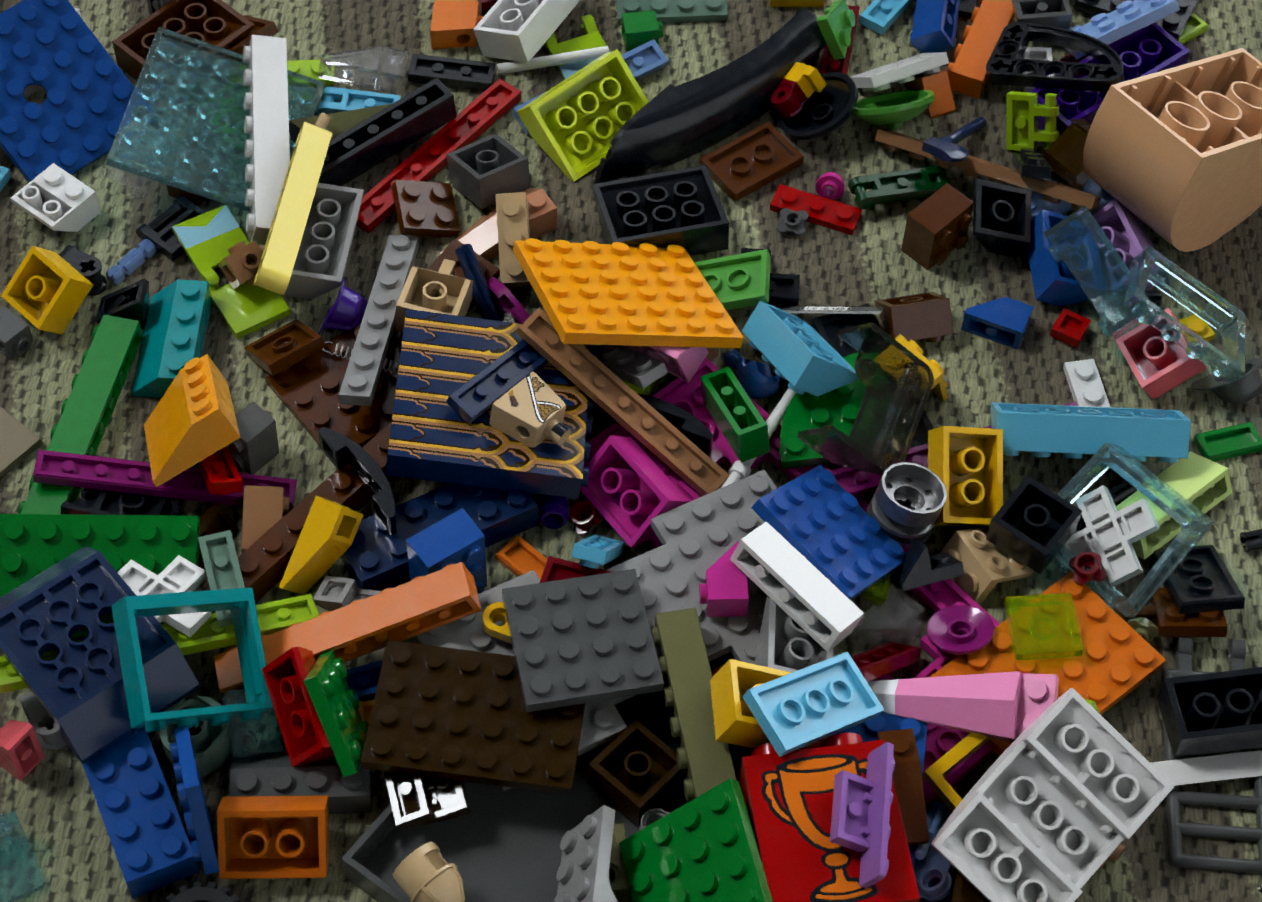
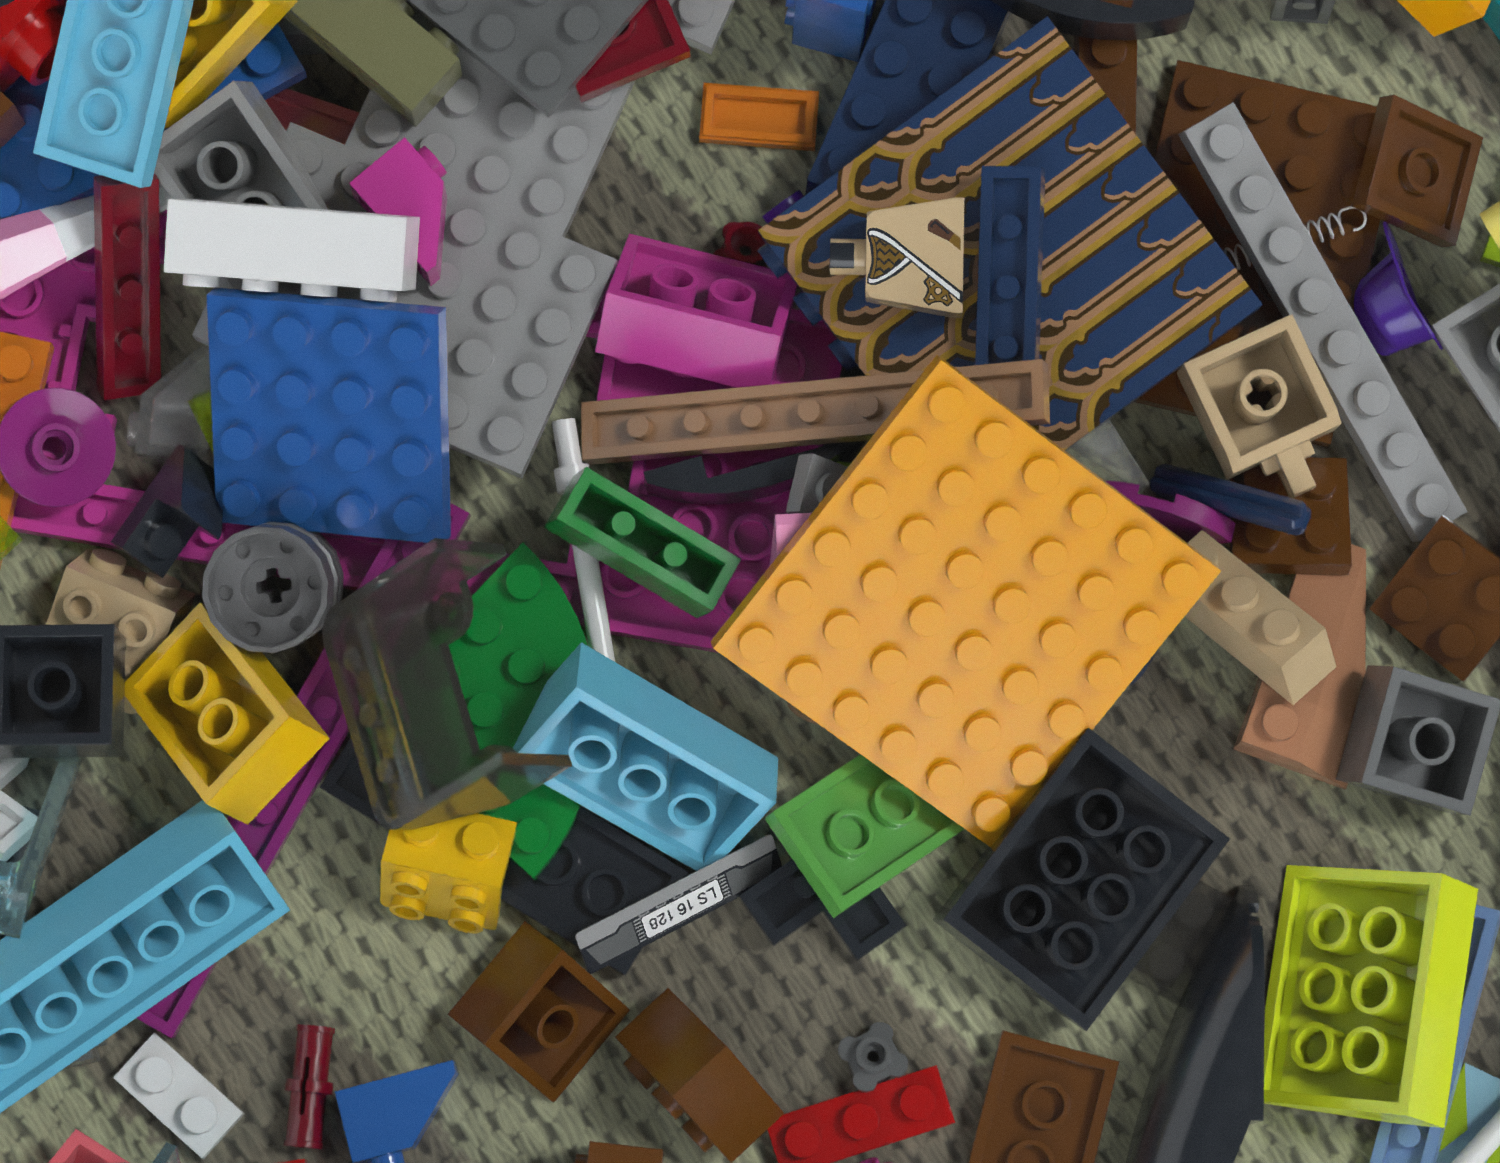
camera: 140 degrees right, 25 degrees up
(597, 550) = (649, 149): medium azure plate -> none
(753, 376) = (703, 682): blue hair -> none
(870, 252) = (697, 1077): none -> reddish brown brick
(1036, 346) = (309, 1086): none -> dark red pin

